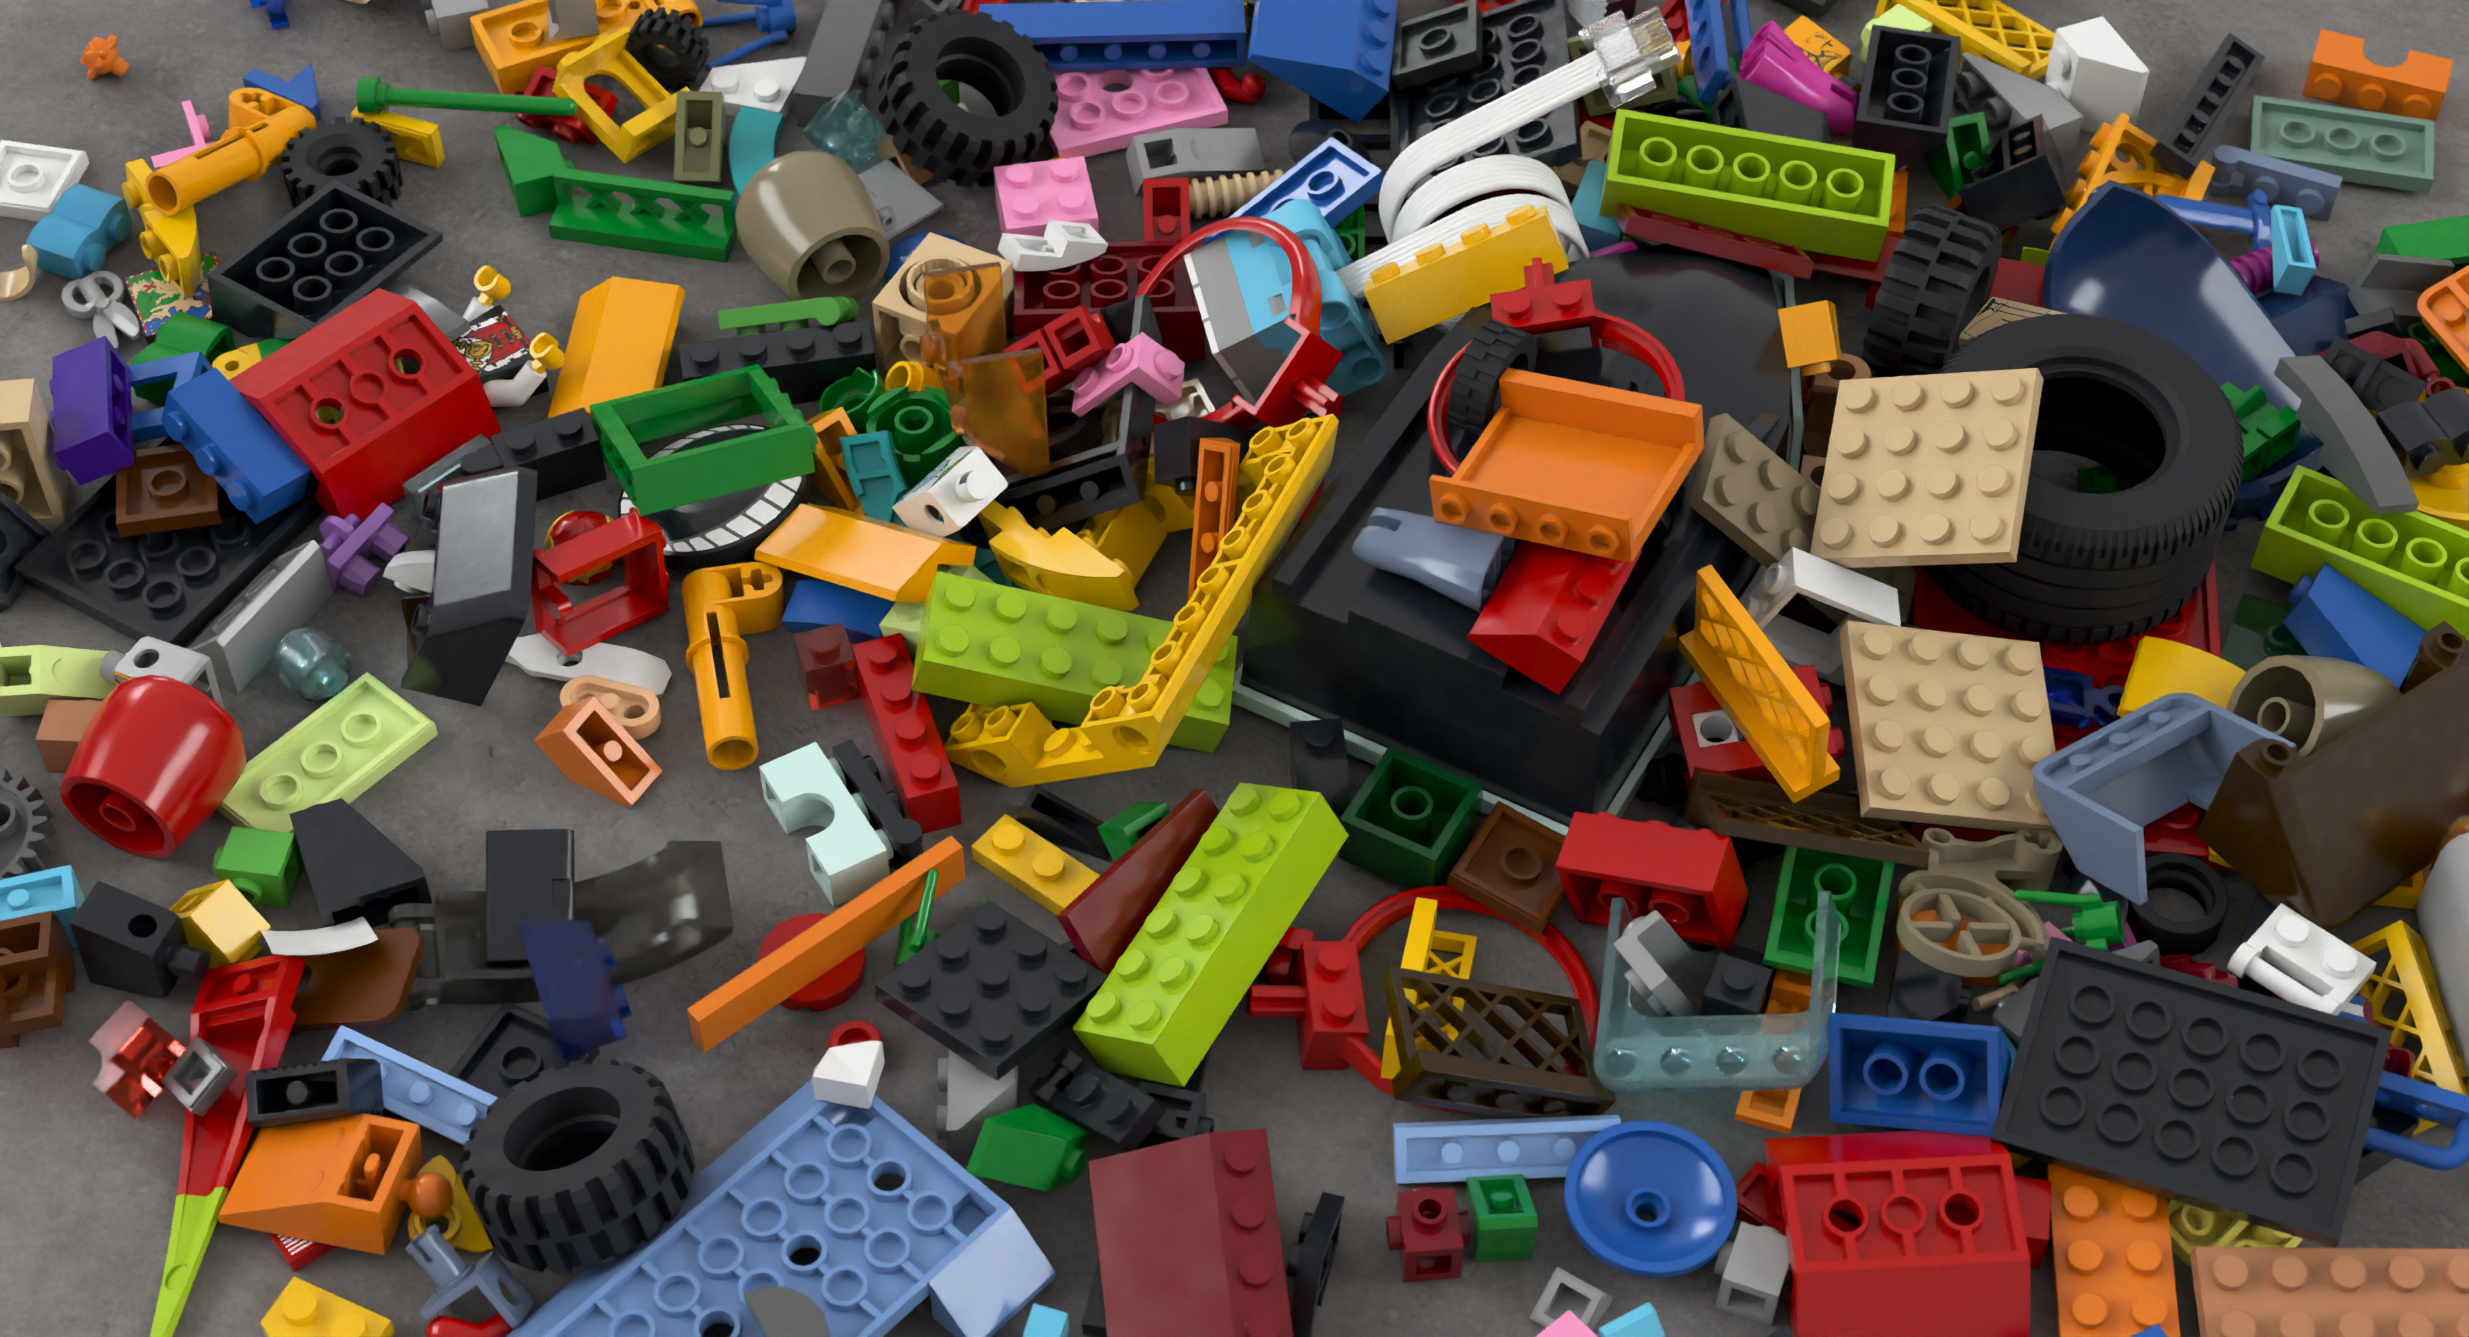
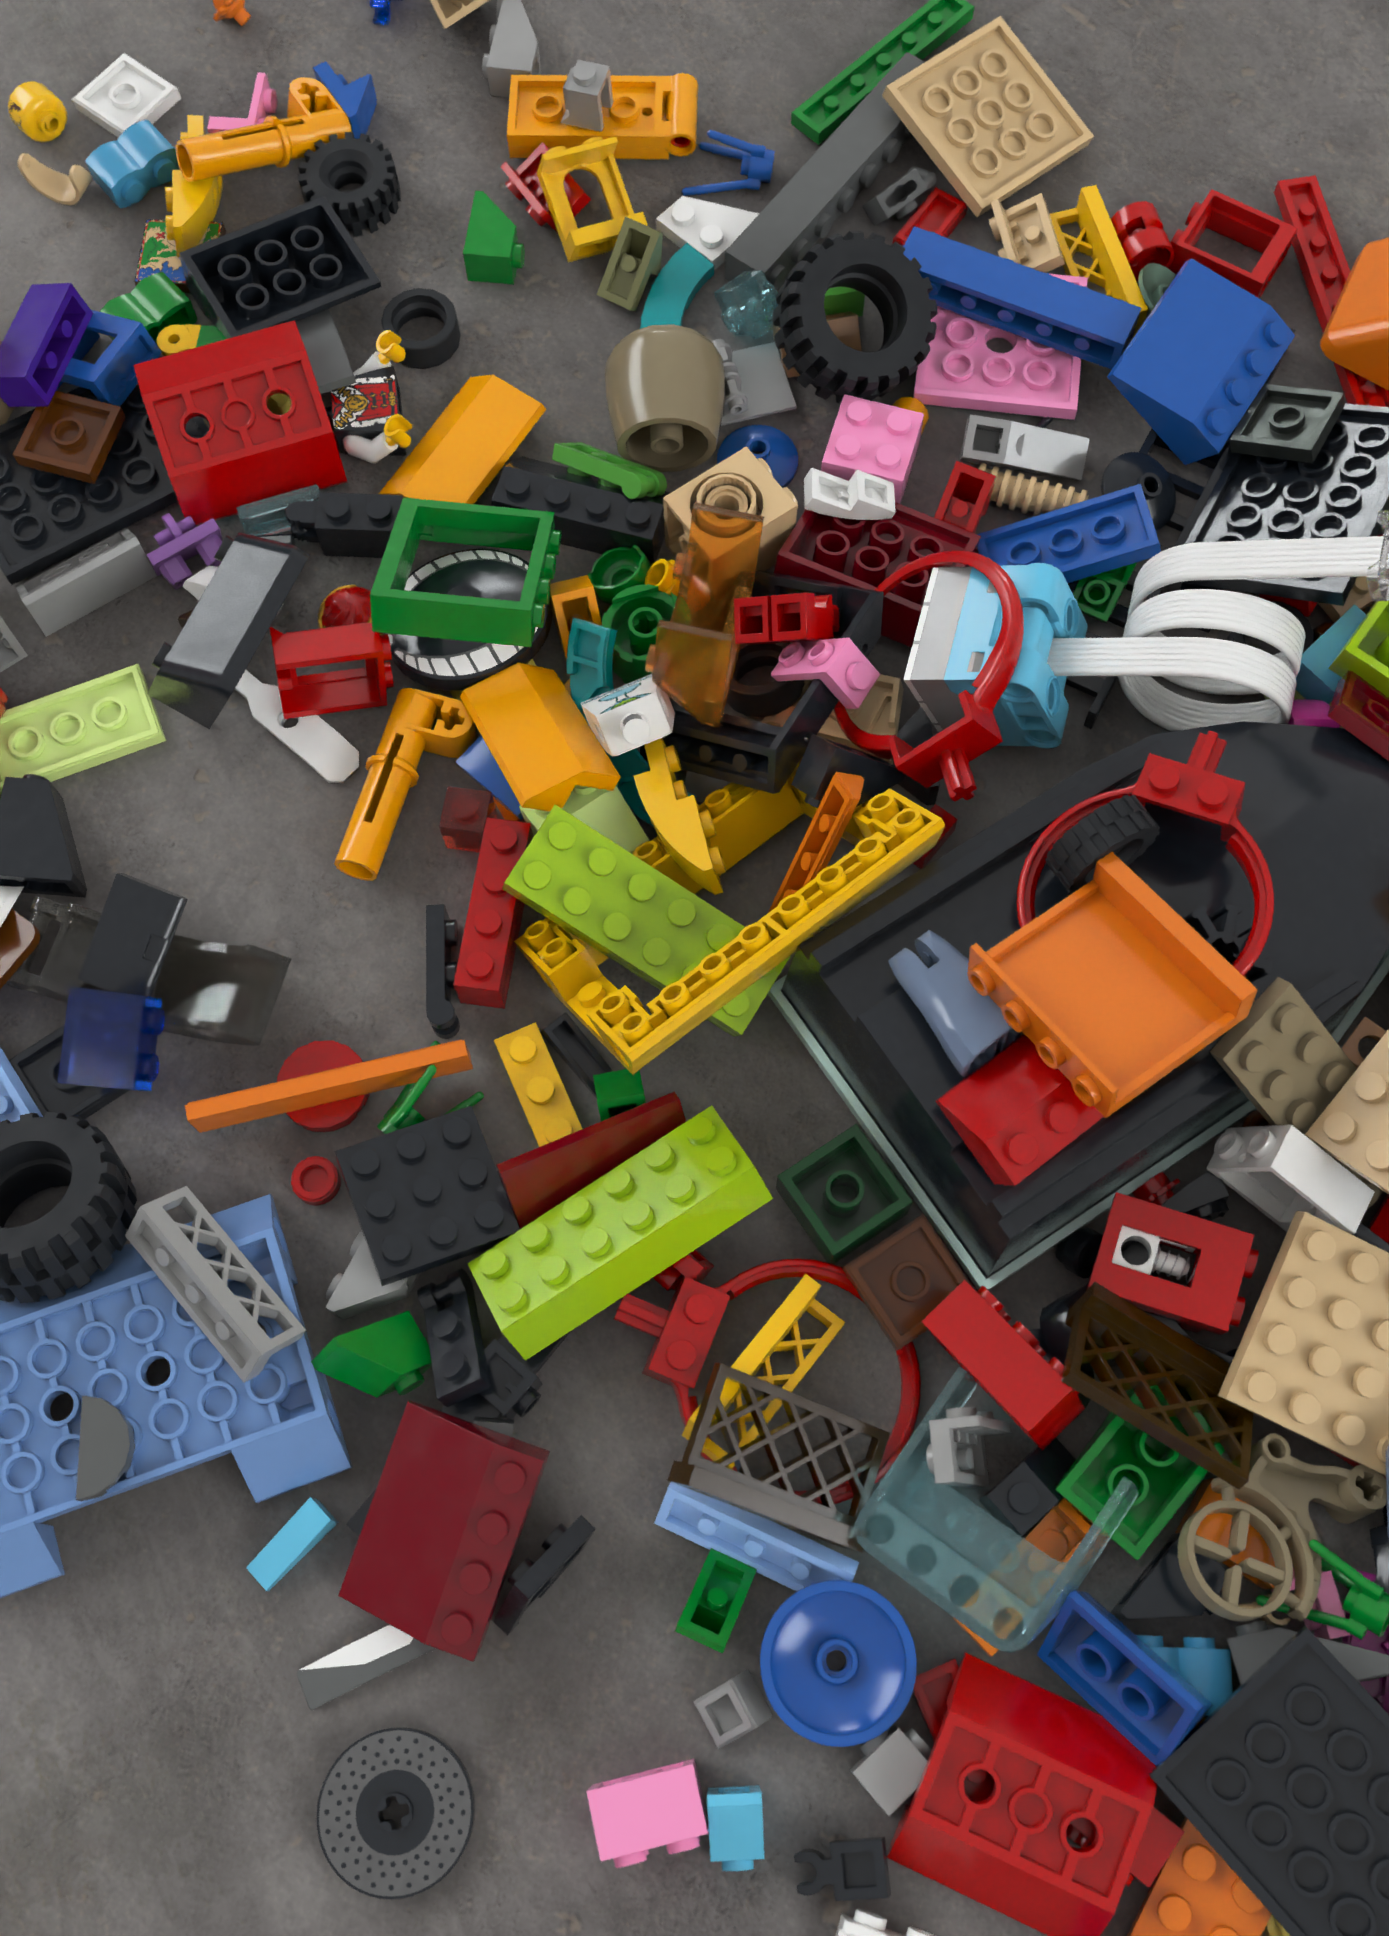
camera: 30 degrees right, 20 degrees up
(105, 310) = (120, 240): light grey piece -> none
(235, 445) = (119, 423): blue brick -> none
(312, 663) = (97, 641): clear light blue head -> none
(378, 96) = (395, 128): green piece -> none
(413, 138) = (411, 168): yellow plate -> none
(499, 246) = (427, 303): none -> black tyre
(598, 752) = (261, 820): orange slope -> none
(630, 705) = (296, 781): light nougat plate -> none
(645, 223) = (547, 320): green fence -> none
(676, 35) = (648, 166): black tyre -> none
(810, 791) = (397, 1003): light aqua arch -> none
(819, 1139) = (202, 1283): none -> light grey fence
(849, 1074) = (264, 1231): white slope -> none
(1245, 91) = (1100, 388): red arm -> none
(1320, 761) = (796, 1113): black slope -> none
(1428, 1234) = (646, 1613): dark red brick -> none
(1463, 274) = (1156, 703): yellow brick -> none
(1758, 690) = (1180, 1252): light orange fence -> none

